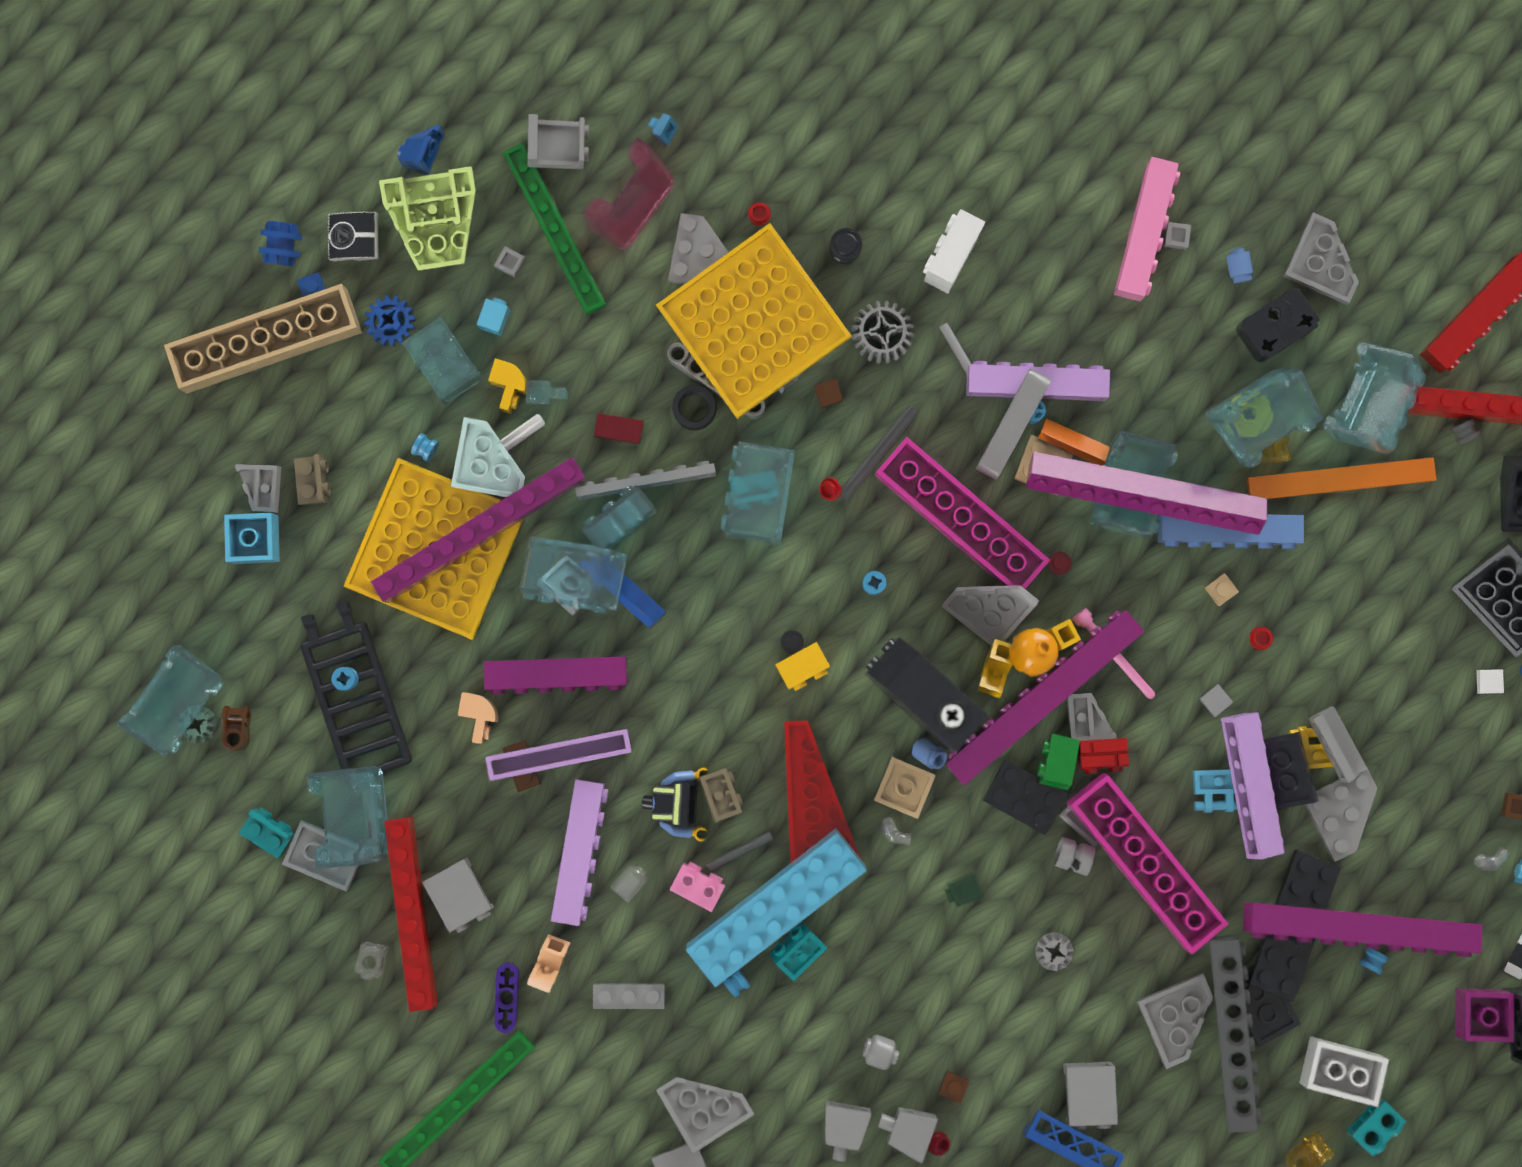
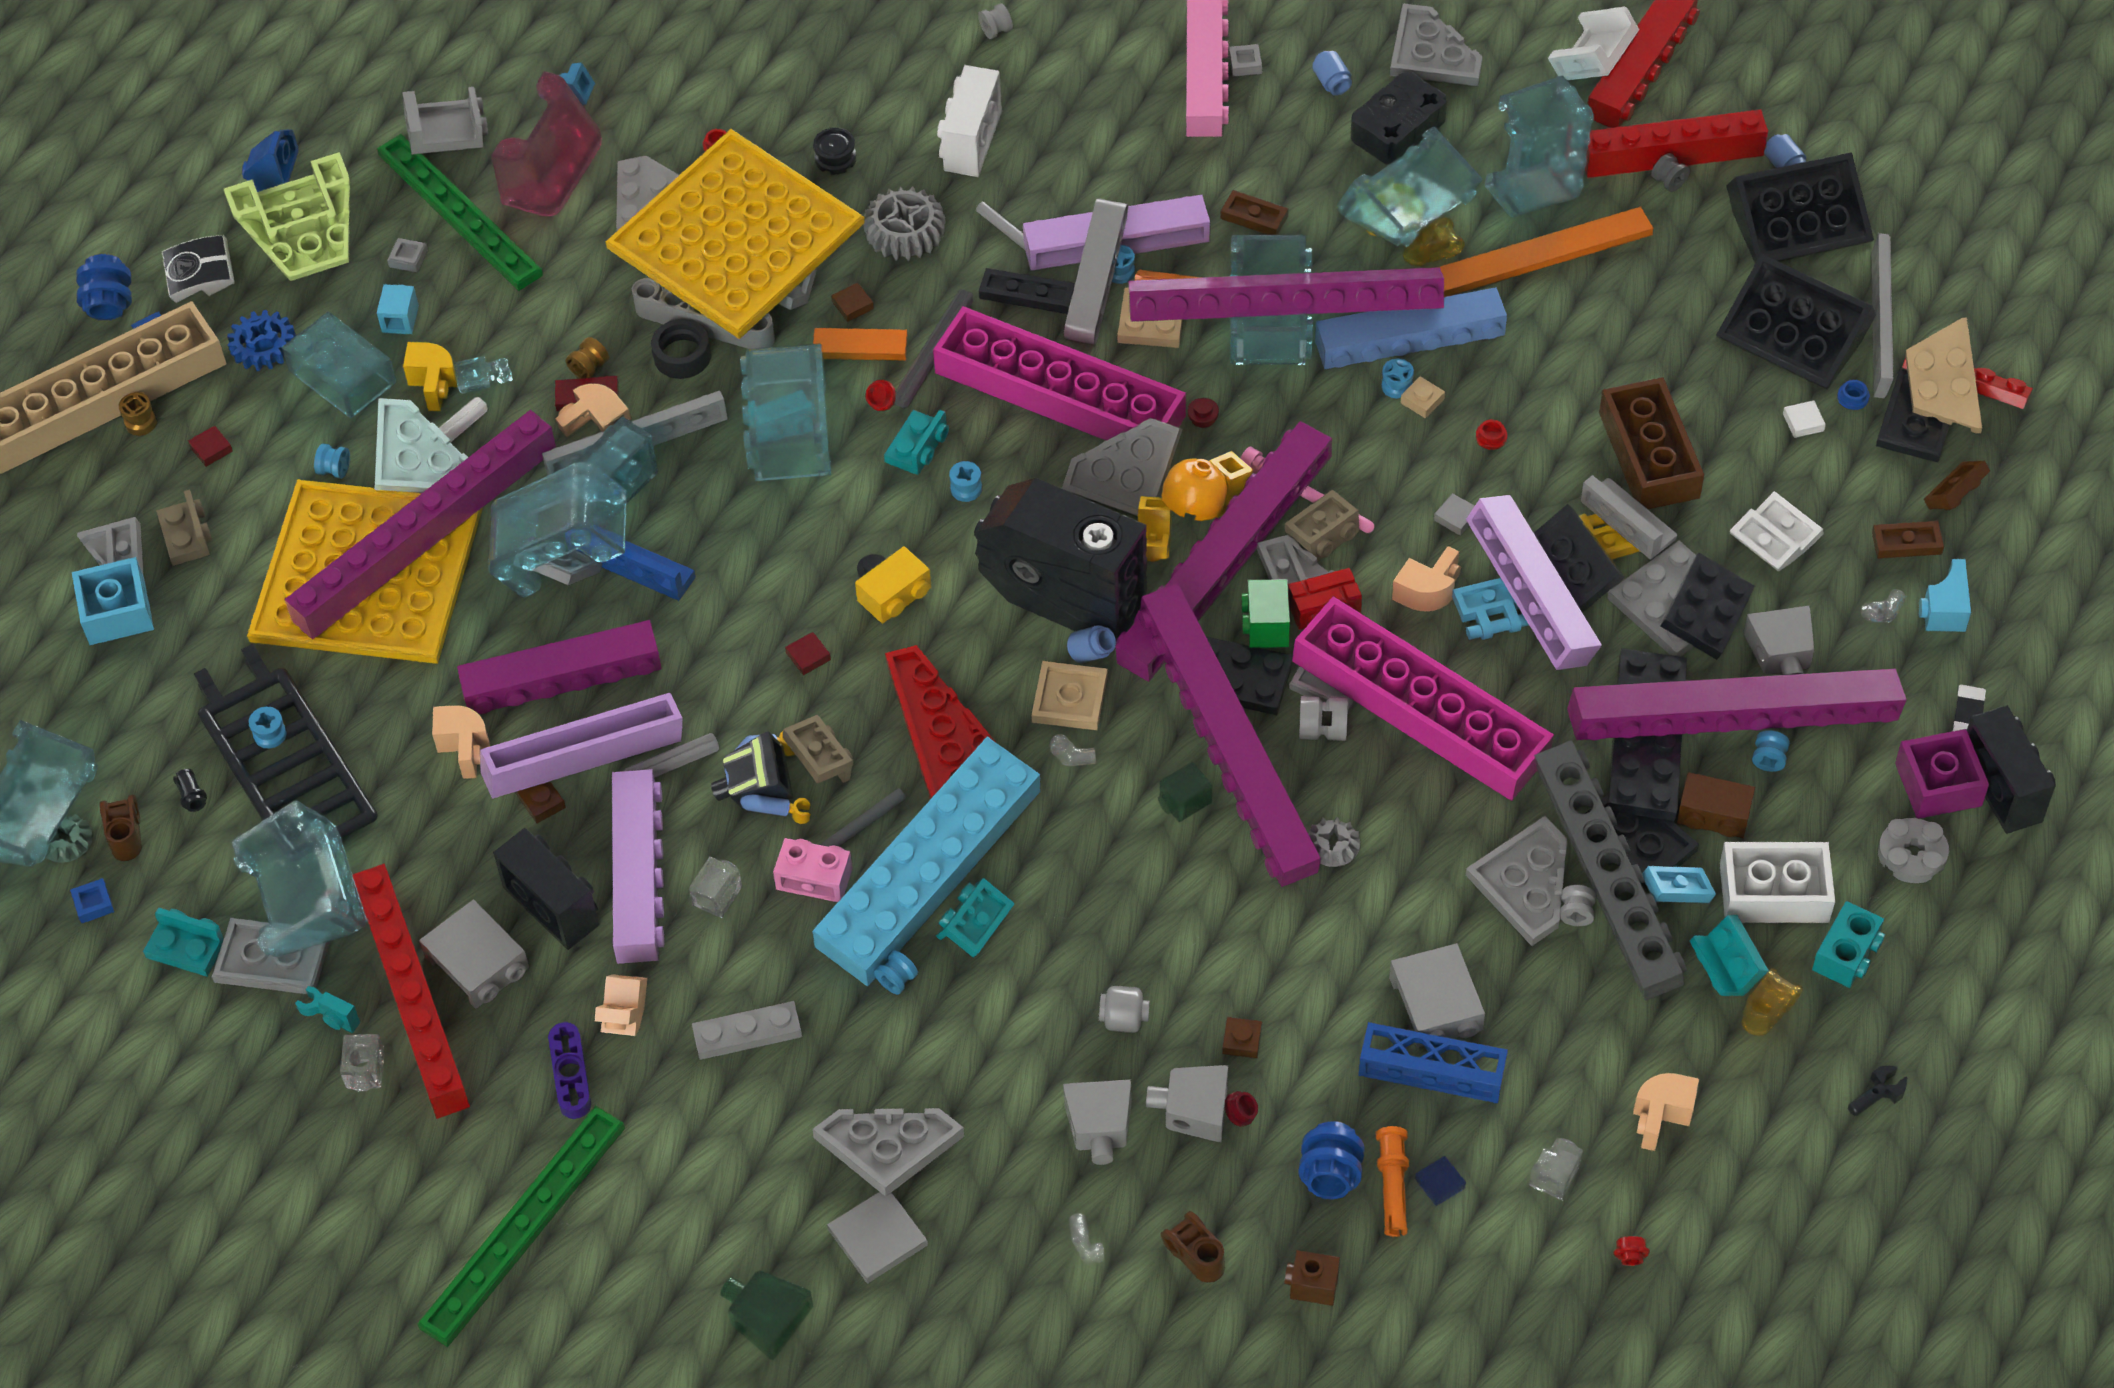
camera: 15 degrees left, 30 degrees down
(209, 783) = (92, 900): none -> blue plate
(286, 708) = (191, 795): none -> black pin
(293, 371) = (137, 413): none -> pearl gold wheel
(340, 407) = (210, 446): none -> dark red tile
(358, 915) = (335, 1011): none -> teal plate
(515, 863) = (547, 888): none -> black brick
(619, 767) = (679, 756): none -> light grey axle
(624, 400) = (584, 361): none -> pearl gold wheel
(624, 450) = (593, 403): none -> light nougat brick
(731, 701) = (808, 653): none -> dark red tile
(825, 434) = (862, 343): none -> orange tile
(847, 535) = (917, 441): none -> teal bracket
(958, 419) = (1026, 290): none -> black plate
(996, 147) = (995, 21): none -> light grey wheel
(1005, 859) = (1229, 735): none -> magenta brick
(1119, 690) = (1324, 525): none -> dark tan bracket
(1144, 389) = (1254, 213): none -> reddish brown plate
(1175, 762) = (1427, 587): none -> light nougat brick
(1204, 1049) = (1577, 905): none -> light grey wheel
(1213, 571) = (1399, 370): none -> dark azure wheel
(1277, 1054) = (1678, 884): none -> medium azure plate
(1293, 1118) = (1730, 957): none -> teal bracket
(1324, 995) = (1715, 805): none -> reddish brown brick
(1368, 832) = (1707, 606): none -> black plate
(1373, 683) = (1651, 443): none -> reddish brown brick
(1412, 874) = (1781, 639): none -> light grey torso
(1437, 775) = (1777, 531): none -> white slope
(1449, 298) = (1600, 45): none -> white panel
(1453, 1071) = (1919, 833): none -> light grey plate

